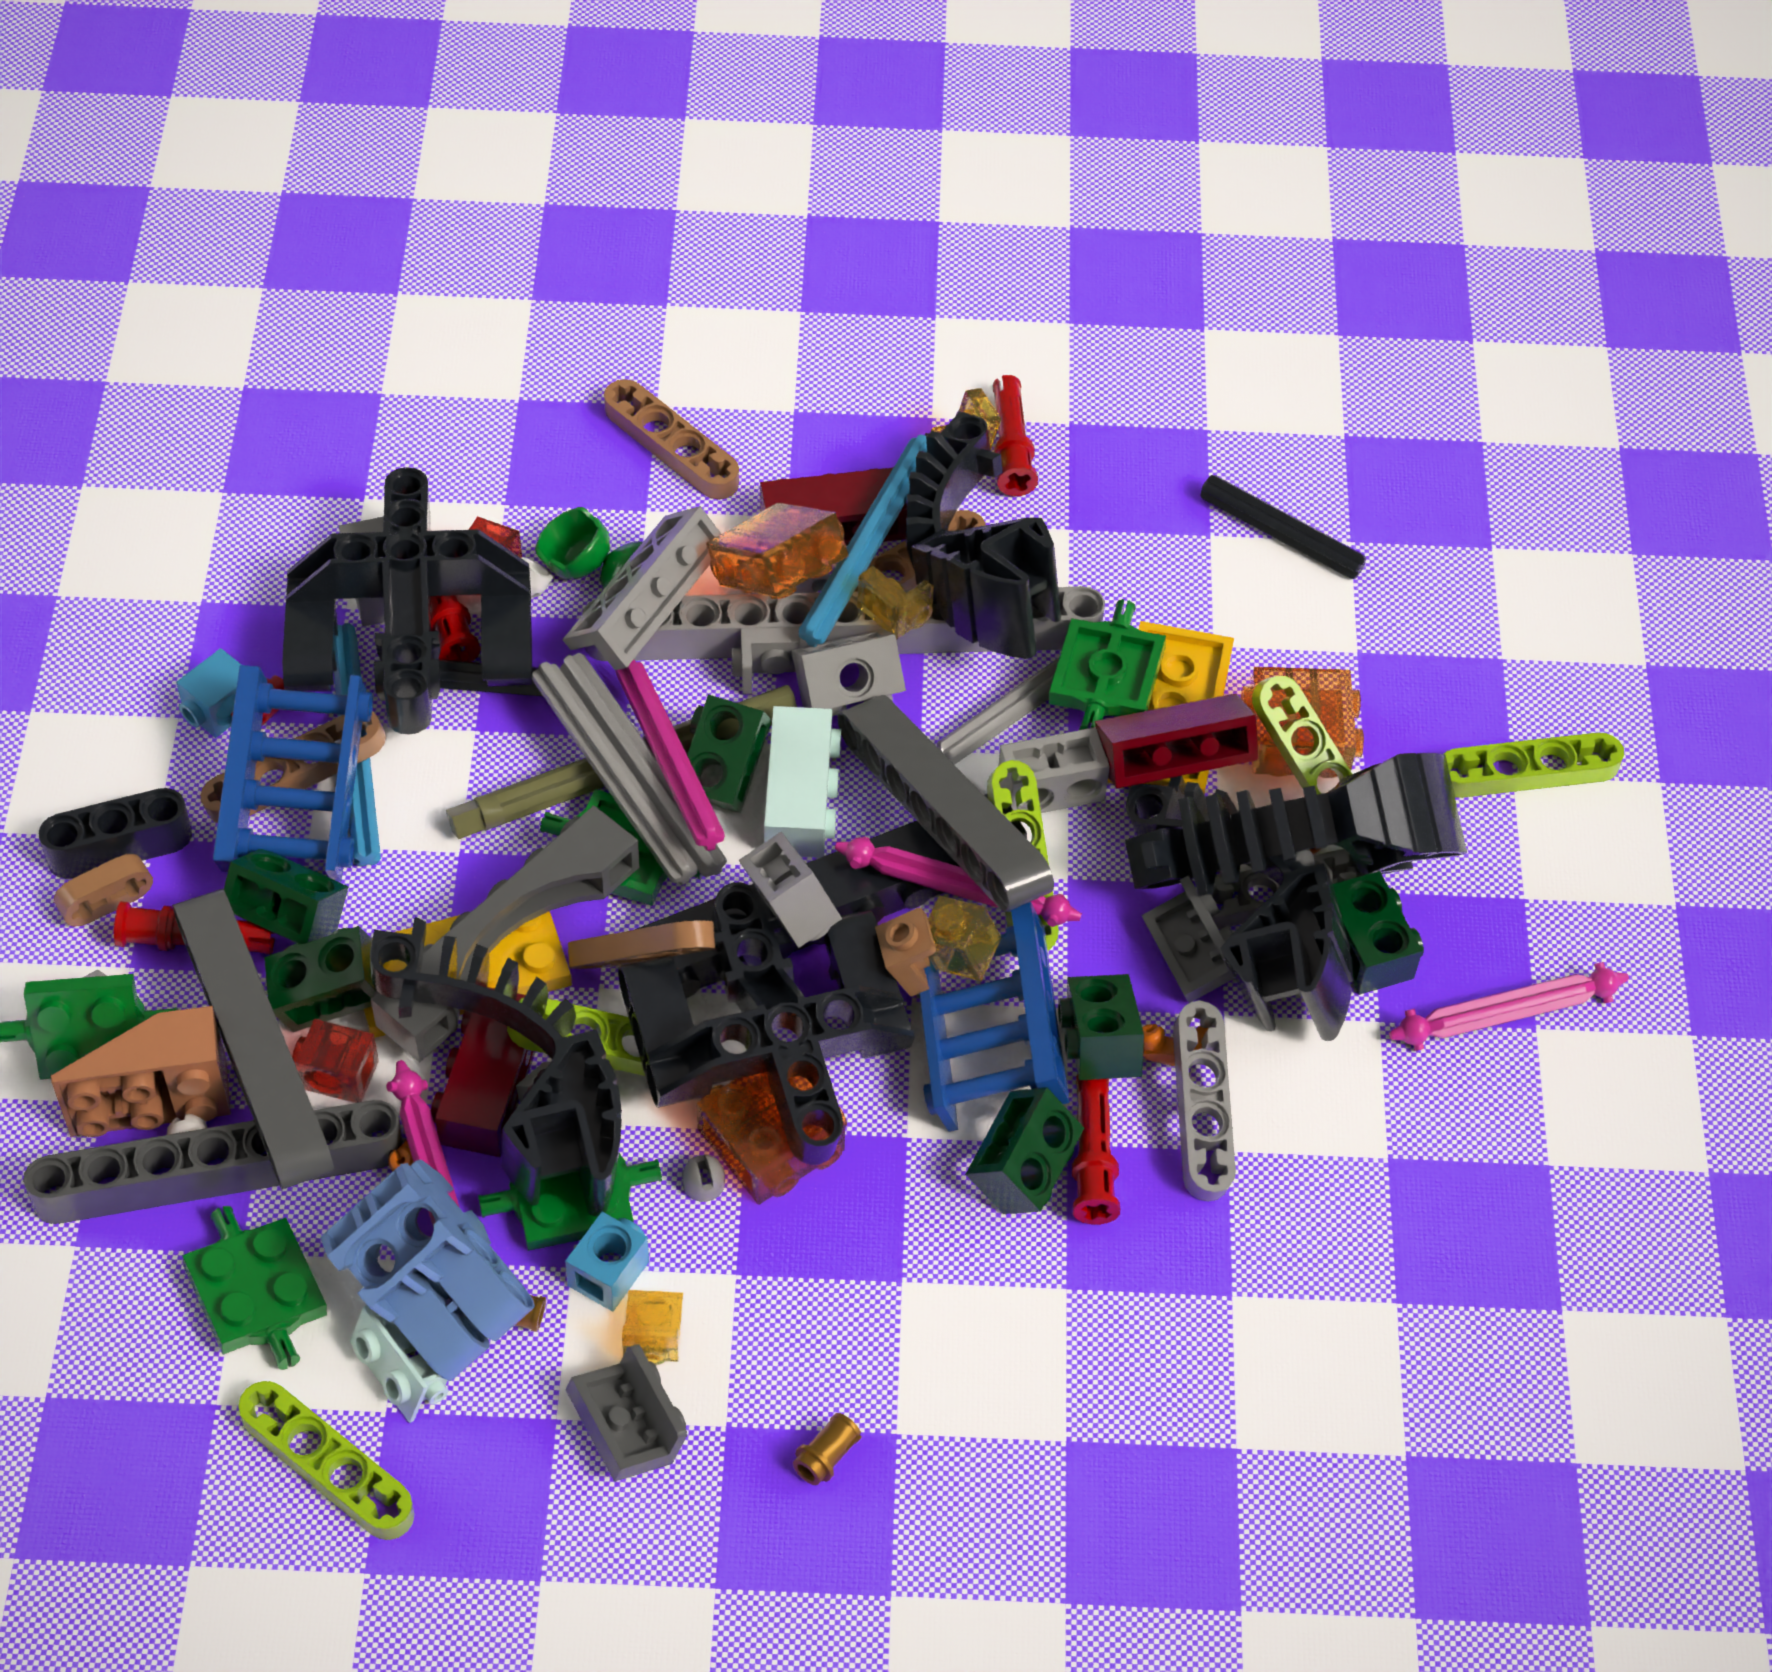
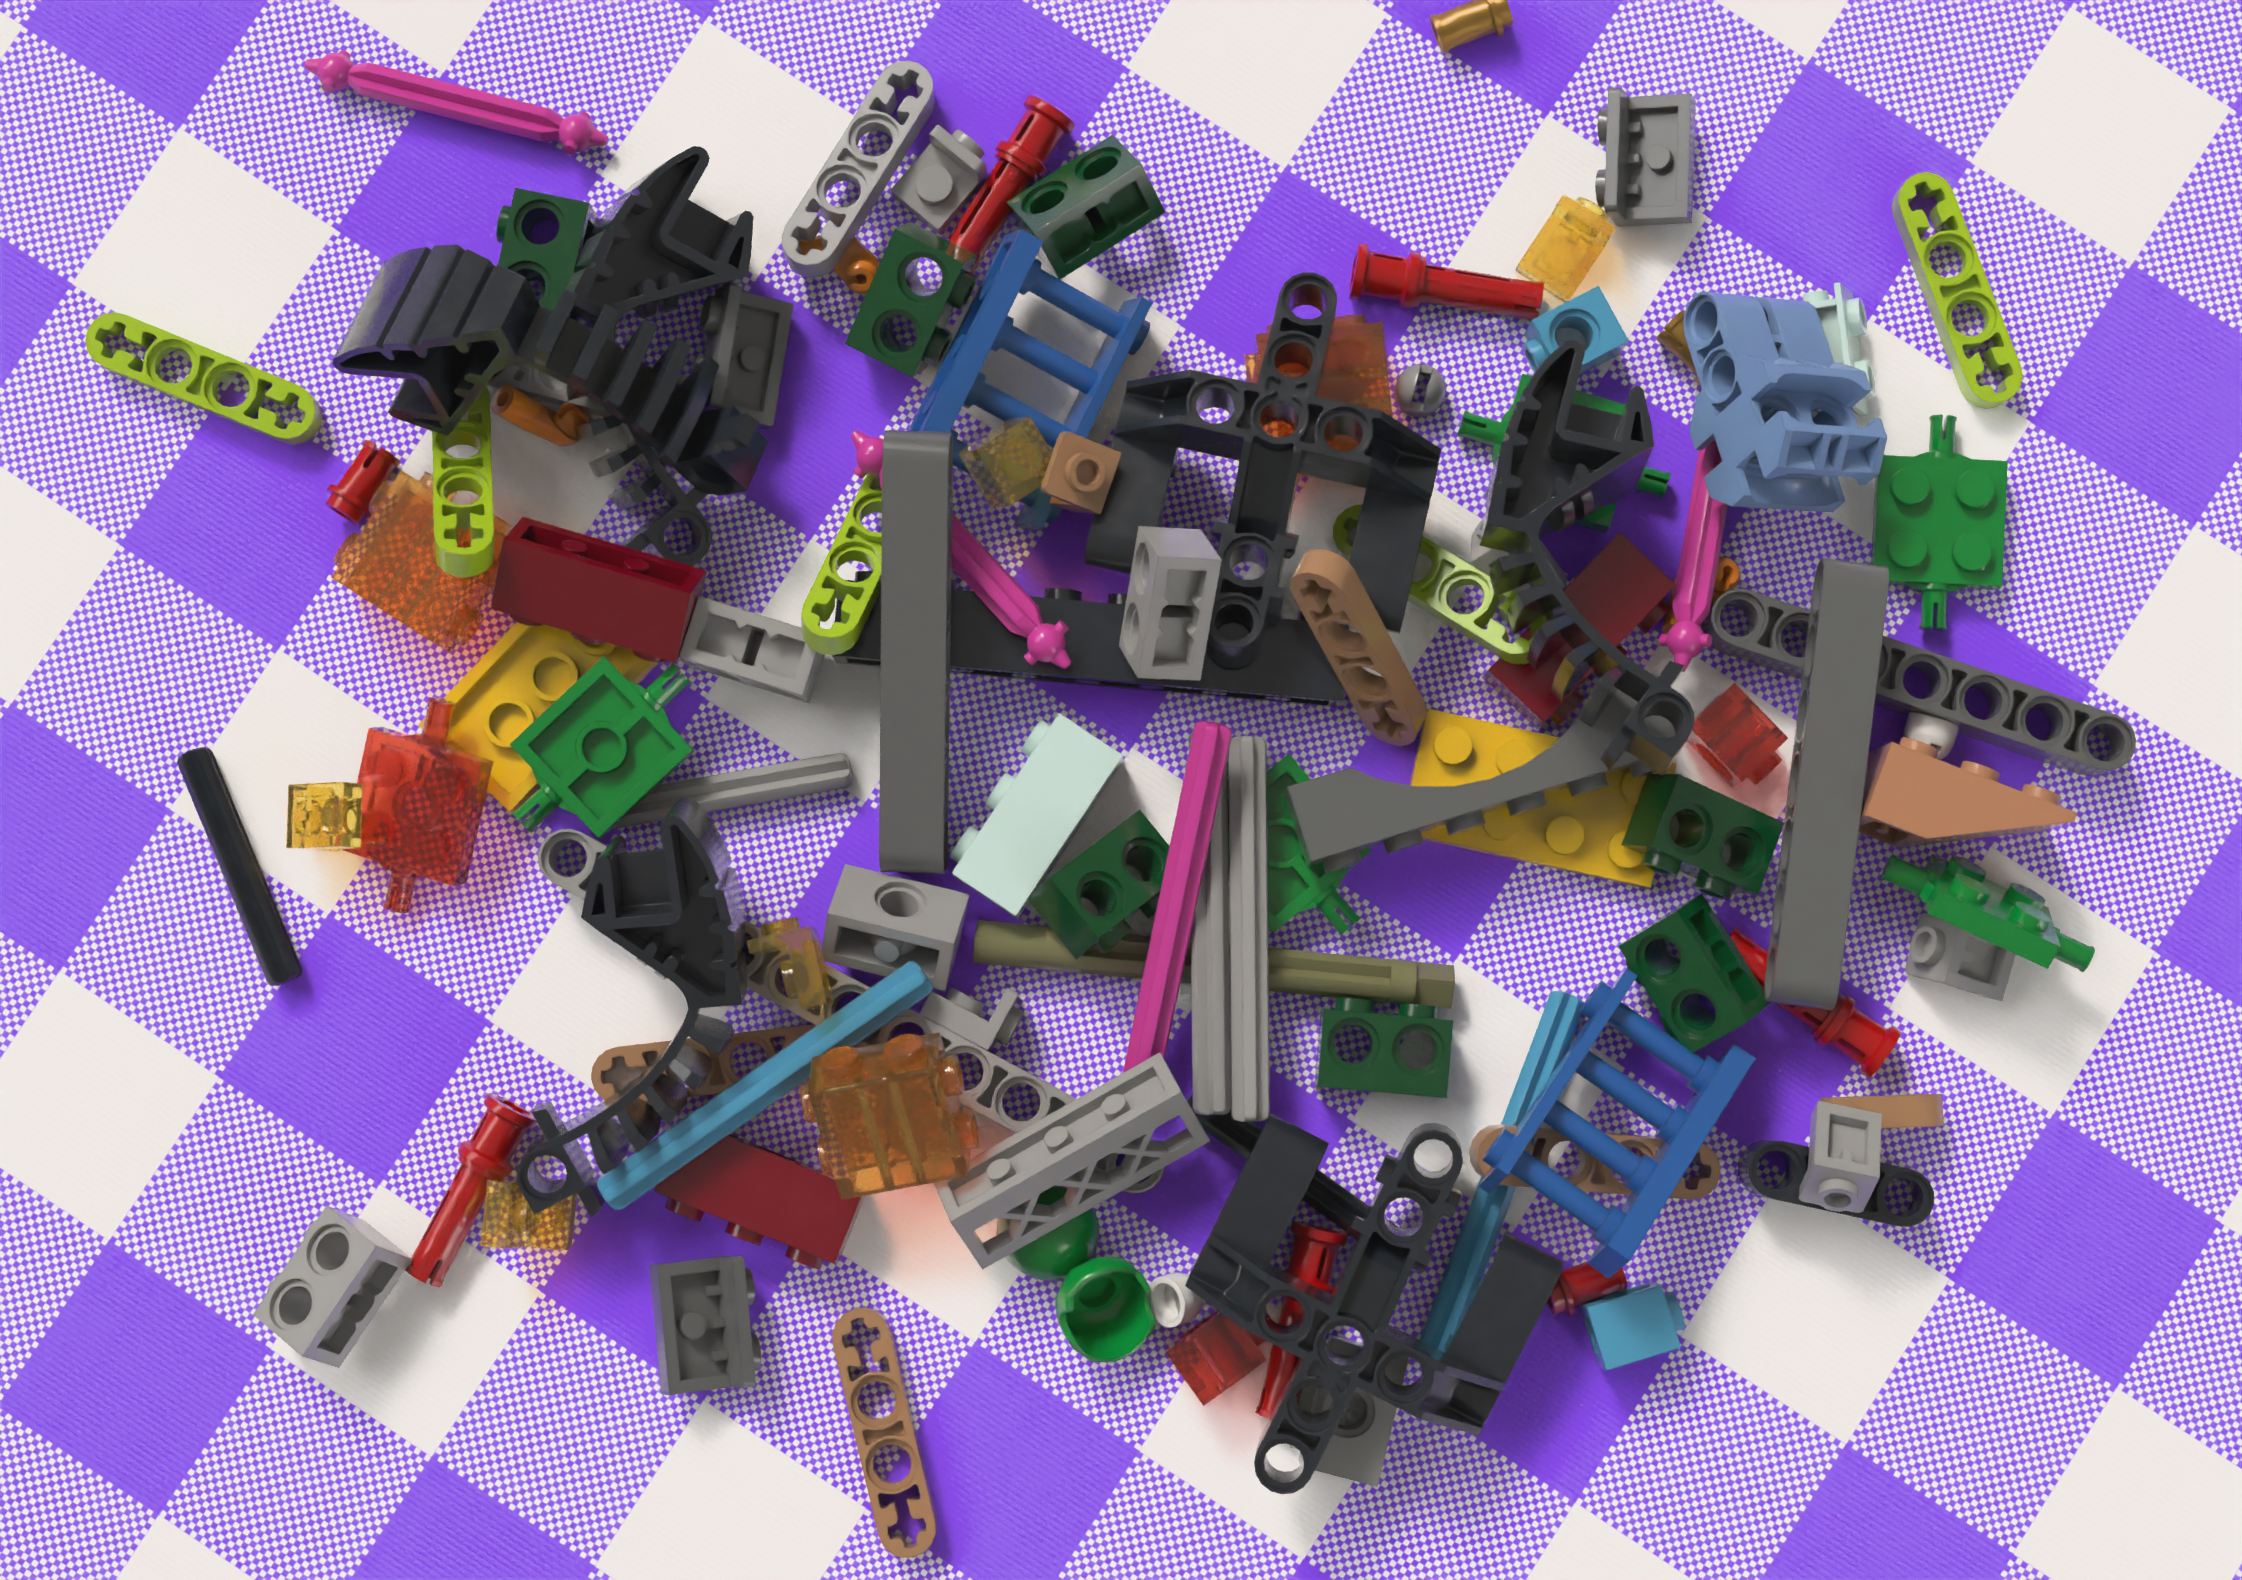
camera: 145 degrees left, 30 degrees up
(120, 823) = (1842, 1157): none -> light grey bracket
(476, 759) = (1382, 1067): none -> dark green brick
(753, 1241) = (1414, 281): none -> red pin
(822, 430) = (704, 1324): none -> dark grey bracket
(1054, 348) = (332, 1287): none -> light grey brick
(1142, 1132) = (942, 178): none -> light grey bracket
(1199, 596) = (420, 804): none -> clear red plate
(1250, 559) = (324, 816): none -> clear yellow bracket
(1379, 742) = (361, 481): none -> red pin

